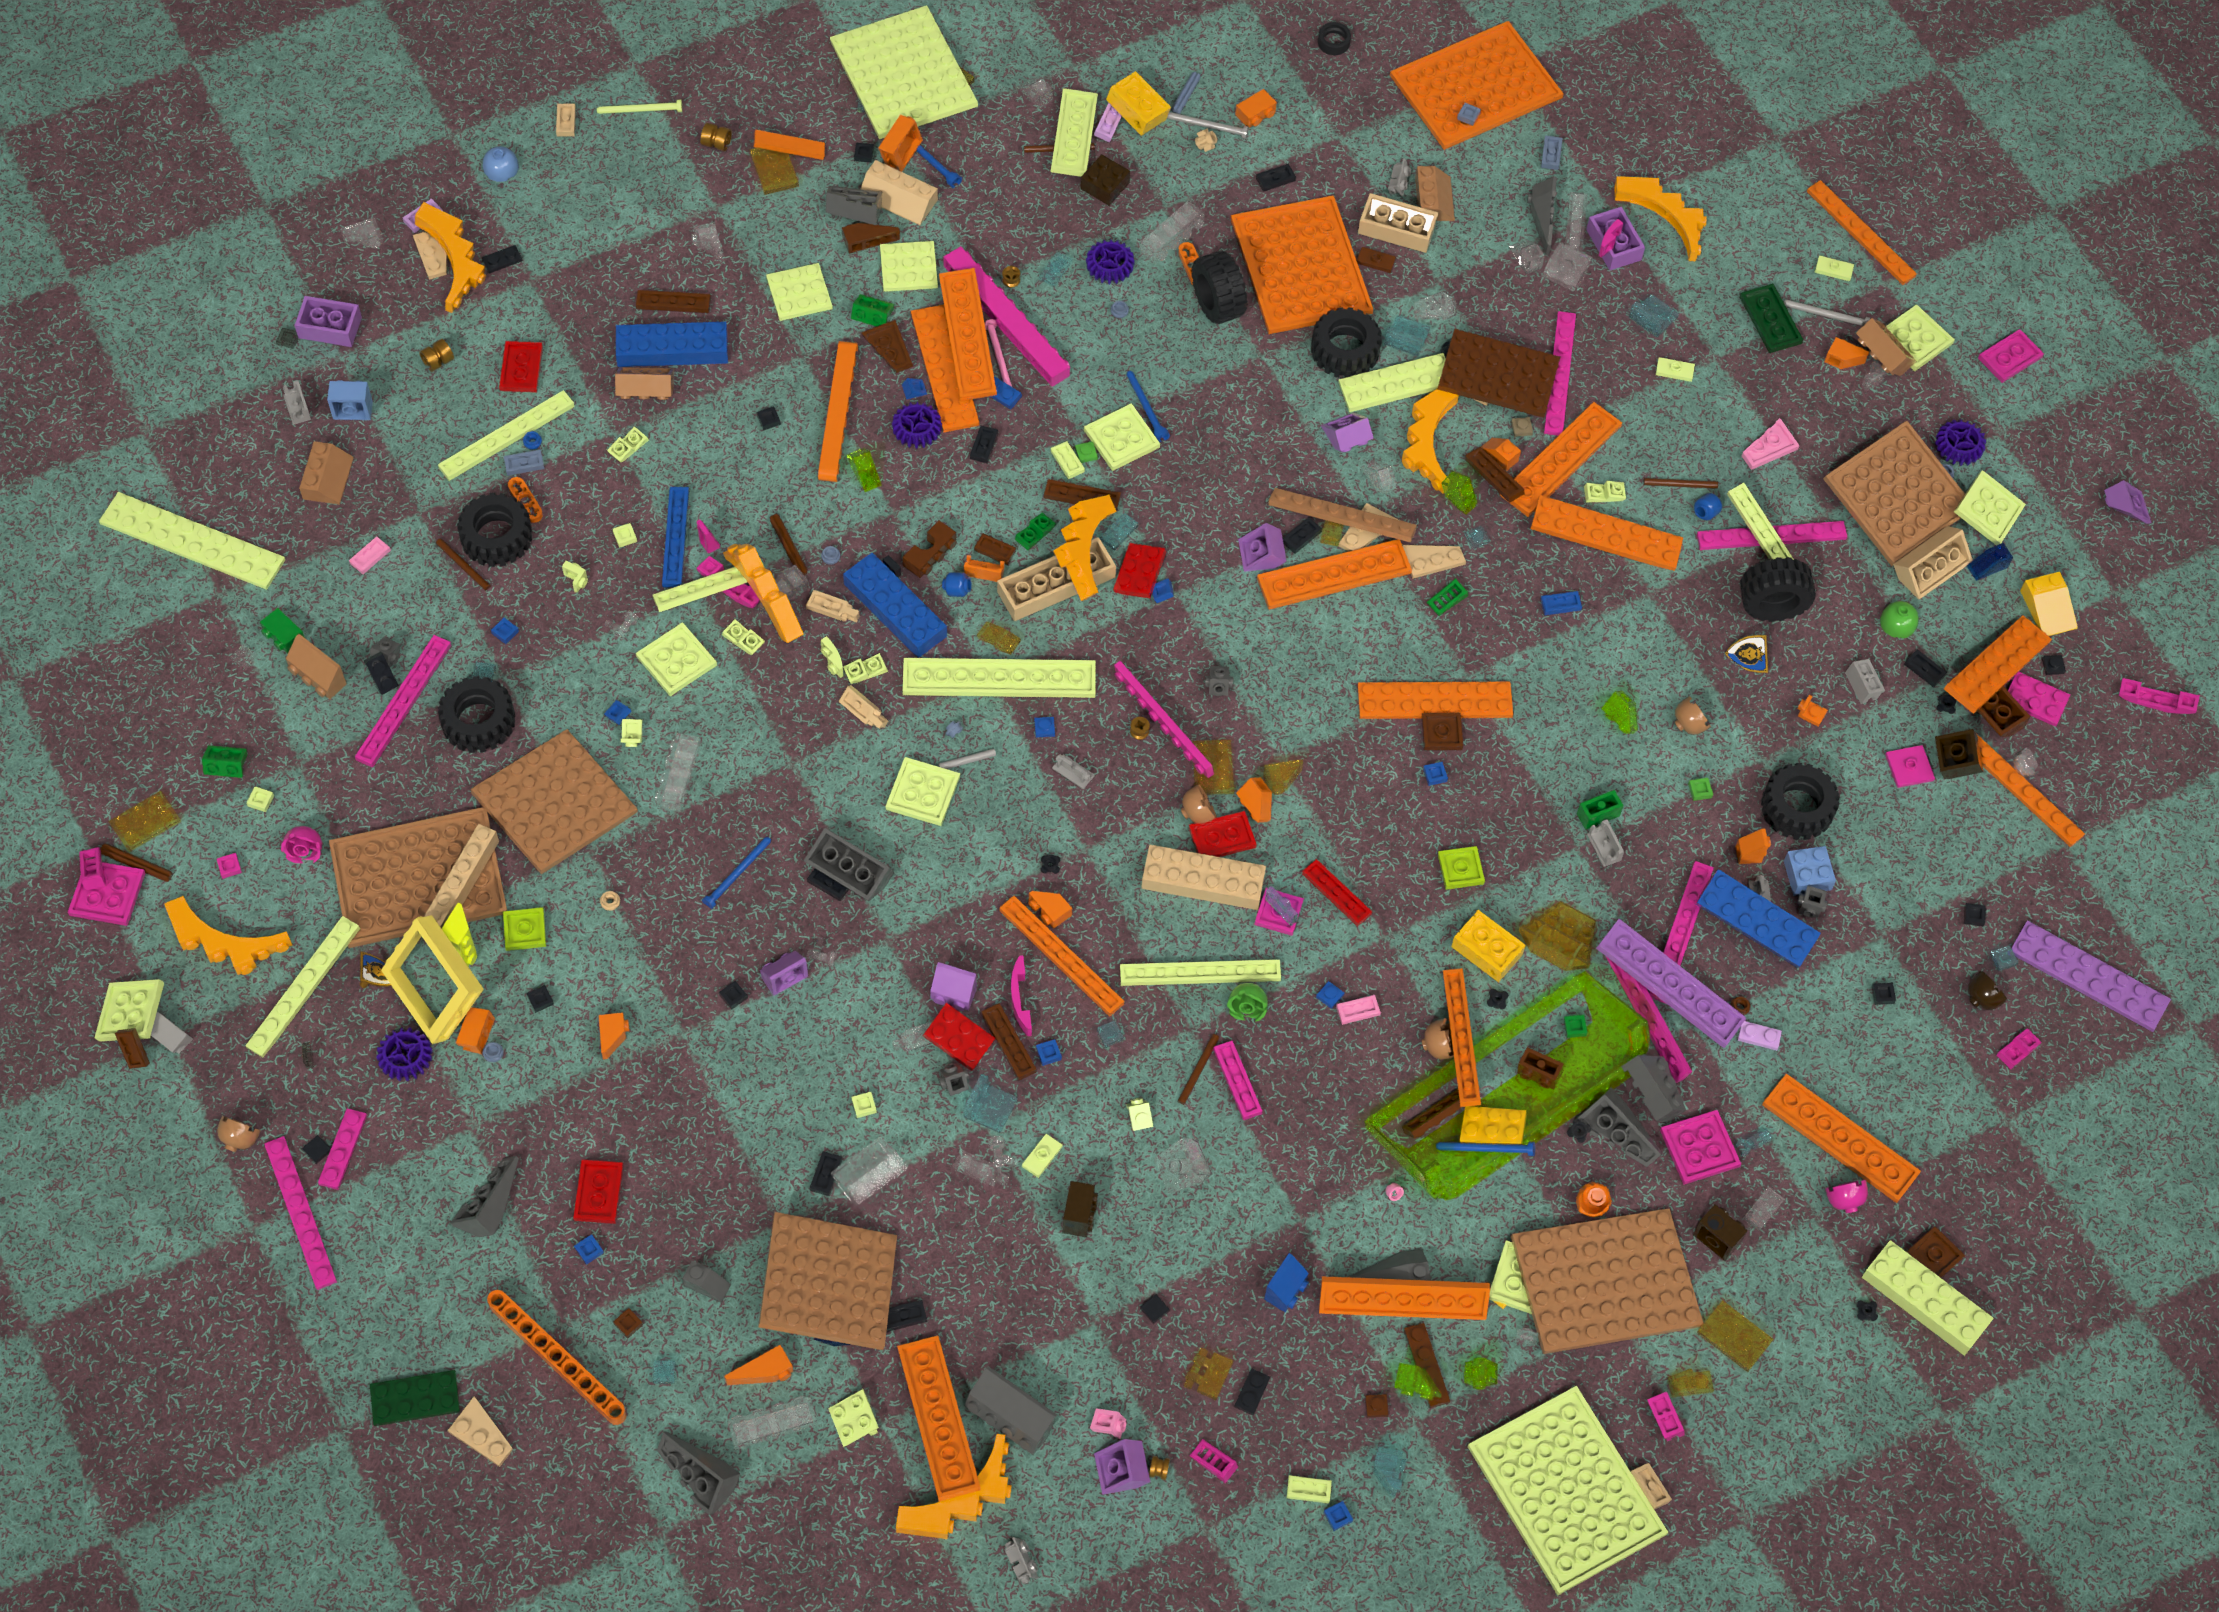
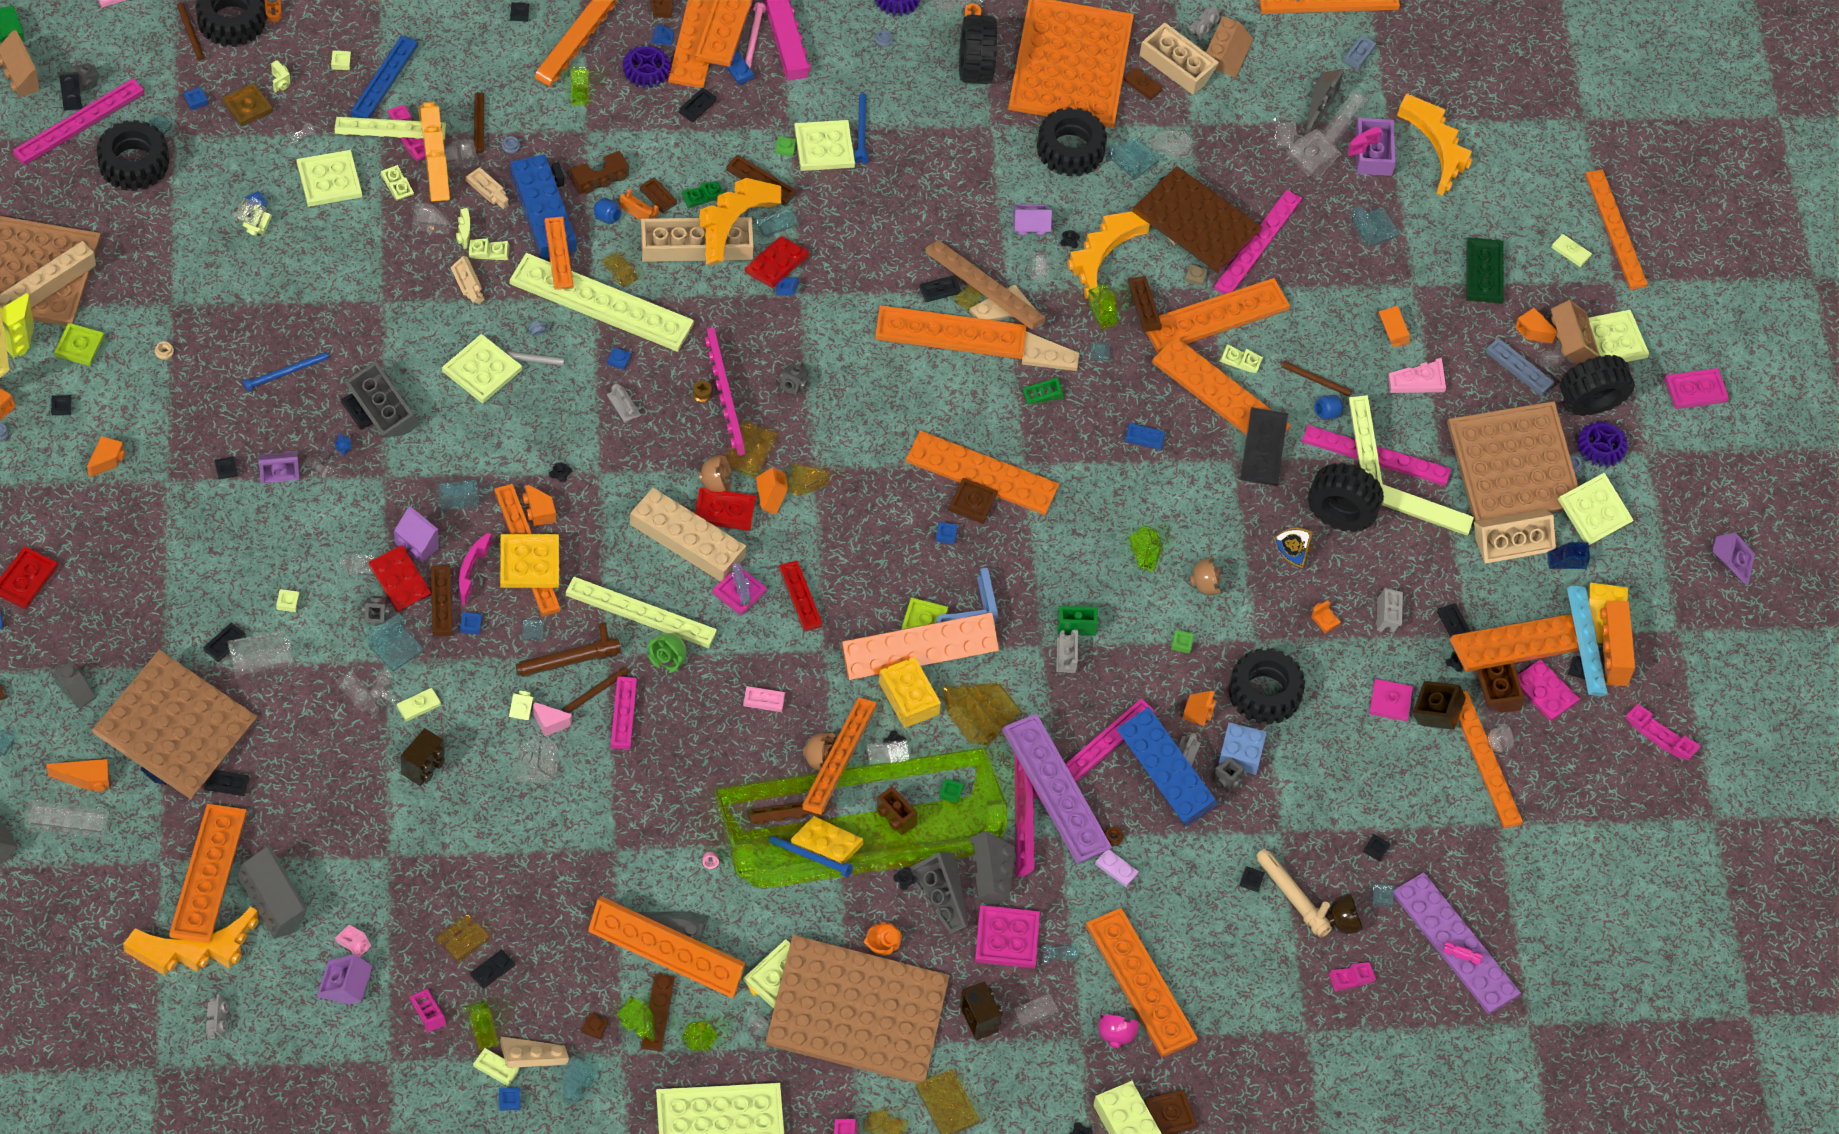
camera: 20 degrees right, 5 degrees down
(554, 801) = (160, 251): medium nougat plate -> none
(558, 616) = (247, 104): none -> pearl gold plate
(623, 726) = (249, 211): none -> clear slope
(678, 772) = (279, 270): clear brick -> none
(707, 538) = (410, 88): dark pink slope -> none
(794, 661) = (429, 219): none -> clear slope
(832, 923) = (343, 444): none -> blue plate
(853, 1418) = (139, 845): yellowish green hinge -> none
(938, 646) = (558, 253): none -> orange tile
(969, 928) = (458, 495): none -> clear light blue brick
(1067, 460) = (764, 146): yellowish green plate -> none
(1073, 967) = (529, 561): none -> yellow plate
(1154, 1309) = (445, 867): black tile -> none
(1159, 1467) = (376, 994): pearl gold wheel -> none
(1173, 1116) = (551, 719): none -> bright pink slope
(1181, 1028) = (597, 650): none -> reddish brown cylinder
(1262, 548) = (897, 285): medium lavender slope -> none
(1273, 1453) = (482, 1025): none -> clear neon green slope
(1286, 1284) = (569, 892): blue slope -> none
(1330, 995) = (746, 677): blue plate -> none
(1335, 1461) = (532, 1053): none -> tan wing
(1392, 382) = (1094, 192): yellowish green plate -> none
(1392, 433) = (1070, 234): none -> black plate
(1474, 892) = (926, 643): none -> plate
(1501, 1013) = (888, 752): none -> clear slope
(1502, 451) = (1163, 289): orange slope -> none
(1509, 825) = (987, 599): none -> medium blue hinge
(1673, 569) = (1264, 446): none -> black plate
(1675, 369) = (1368, 280): yellowish green plate -> none
(1724, 404) = (1395, 326): none -> orange hinge
(1826, 313) = (1538, 284): light grey bar -> none
(1847, 570) = (1426, 510): none -> yellowish green tile
(1850, 398) = (1519, 367): none -> sand blue plate
(1899, 619) = (1454, 572): bright green cylinder -> none
(1935, 389) = (1597, 385): none -> black tyre
(1956, 1006) = (1312, 916): none -> tan cylinder
(2050, 637) = (1587, 641): none -> medium azure plate
(2080, 628) = (1617, 643): none -> orange wedge
(2105, 984) = (1462, 953): none -> dark pink axle

